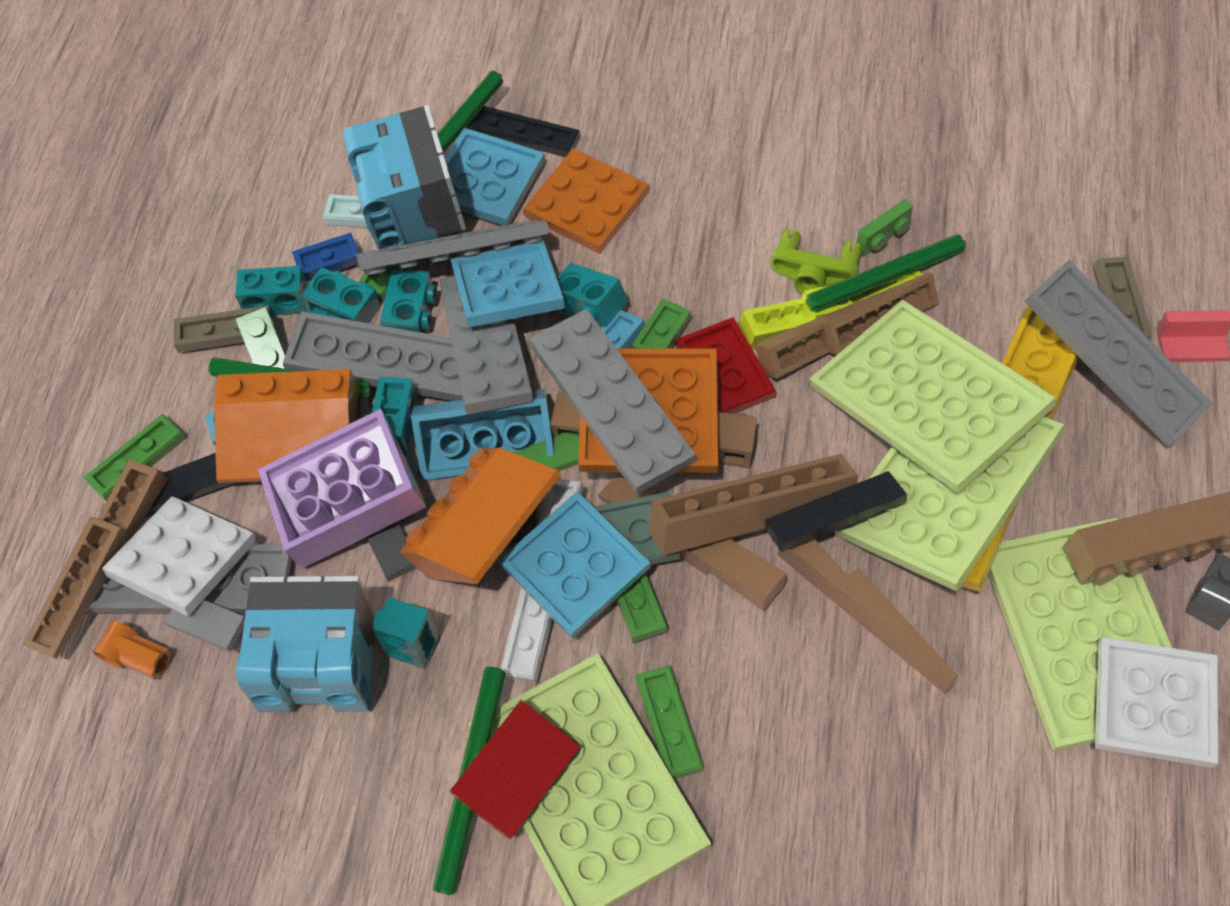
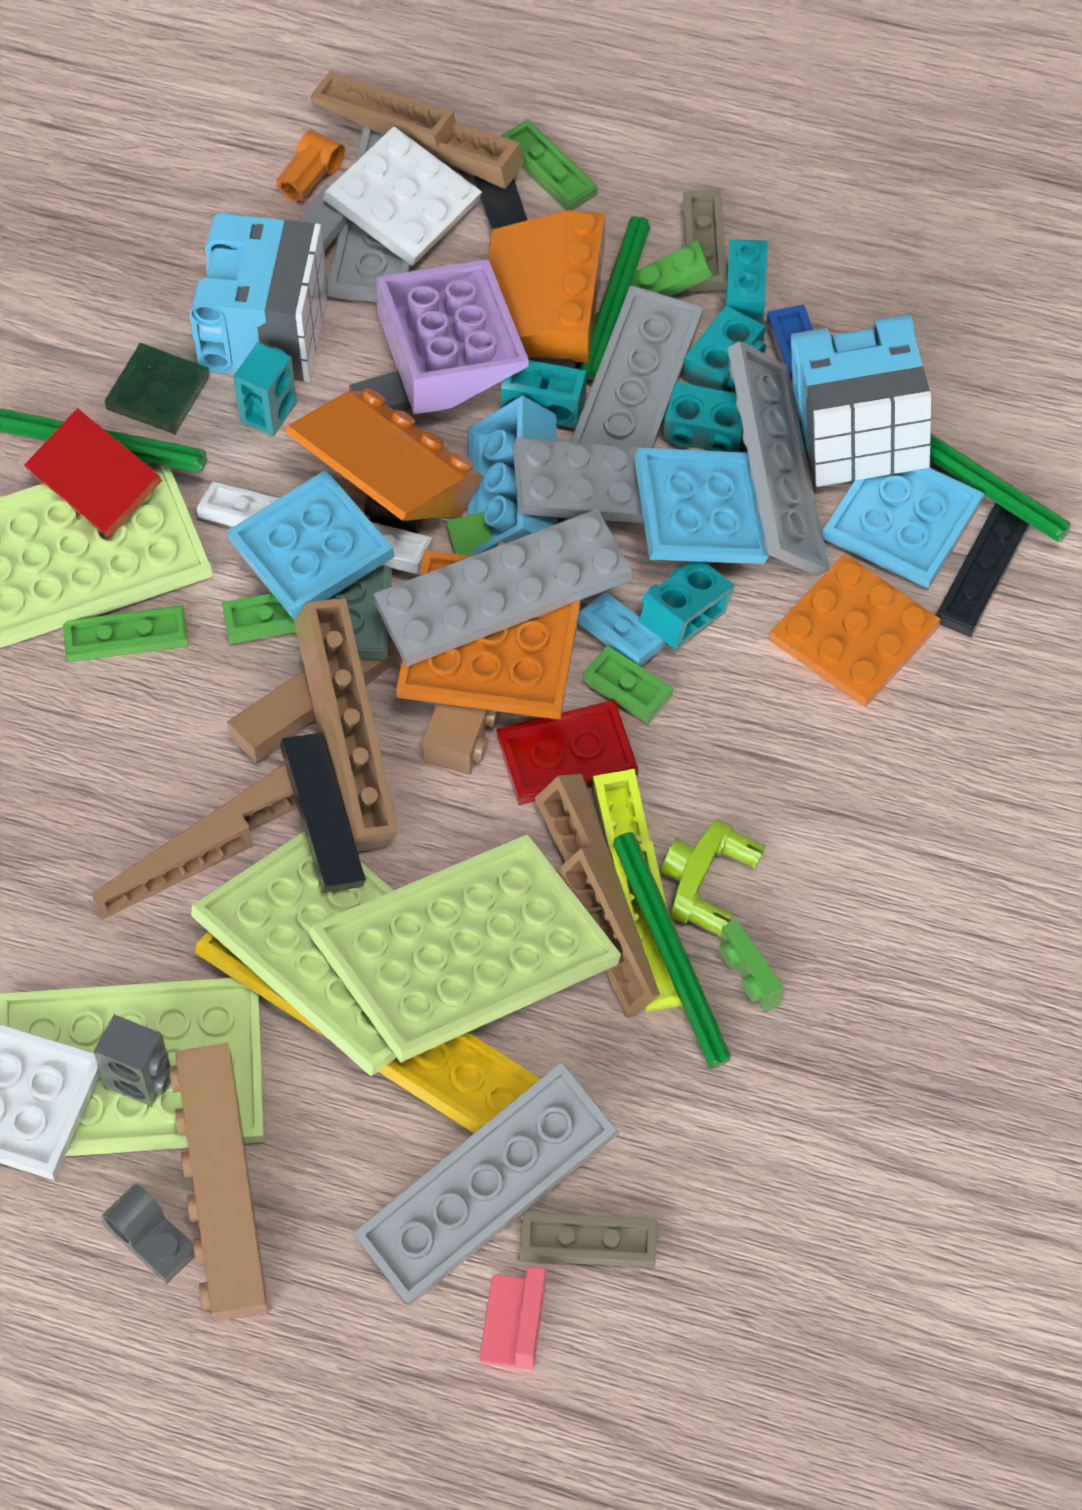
camera: 95 degrees right, 0 degrees up
(395, 747) = (157, 388): none -> clear green plate
(1109, 602) = (133, 1060): none -> dark grey brick

